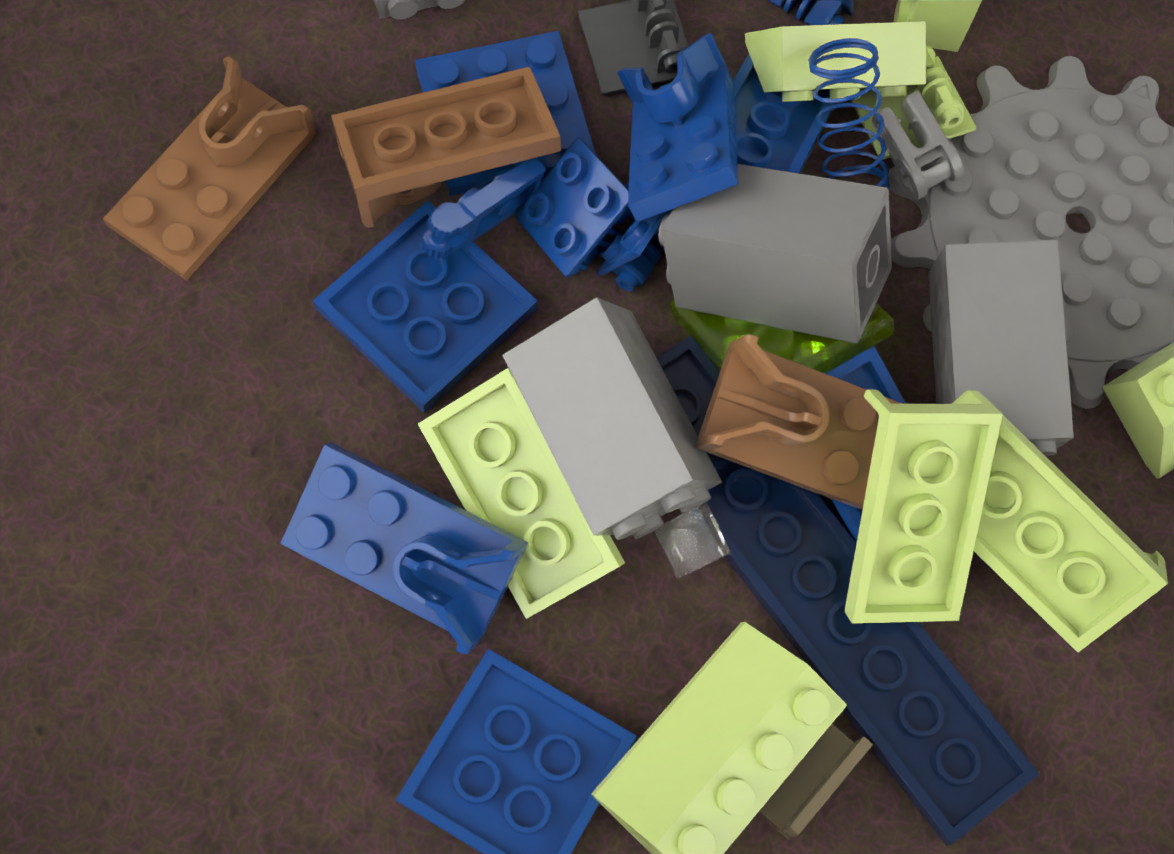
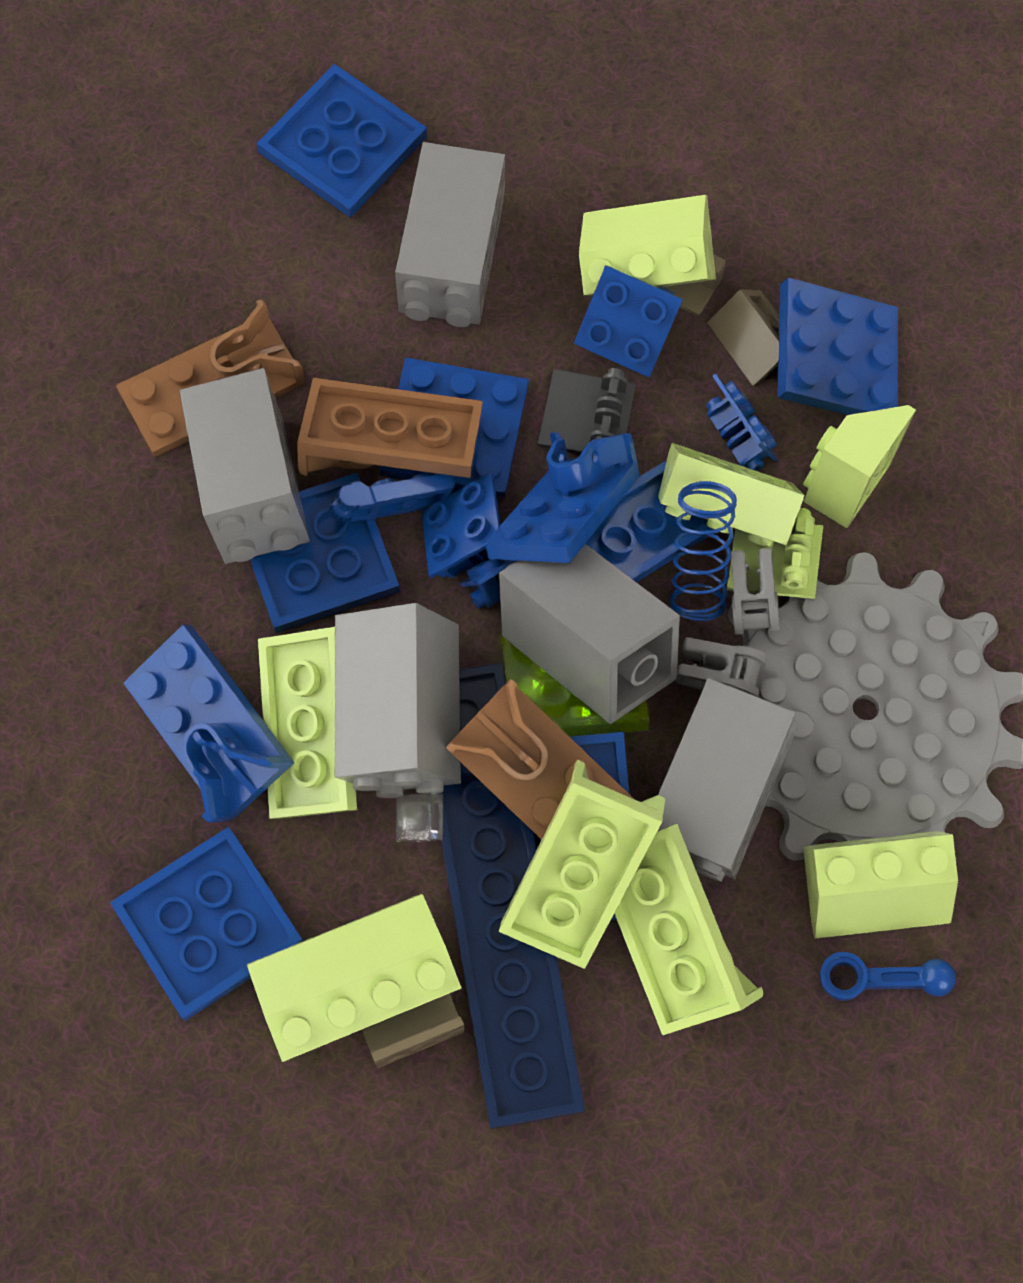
camera: 30 degrees right, 0 degrees up
(307, 238) = (243, 466): none -> light grey brick
(932, 230) = (729, 658): none -> light grey piece

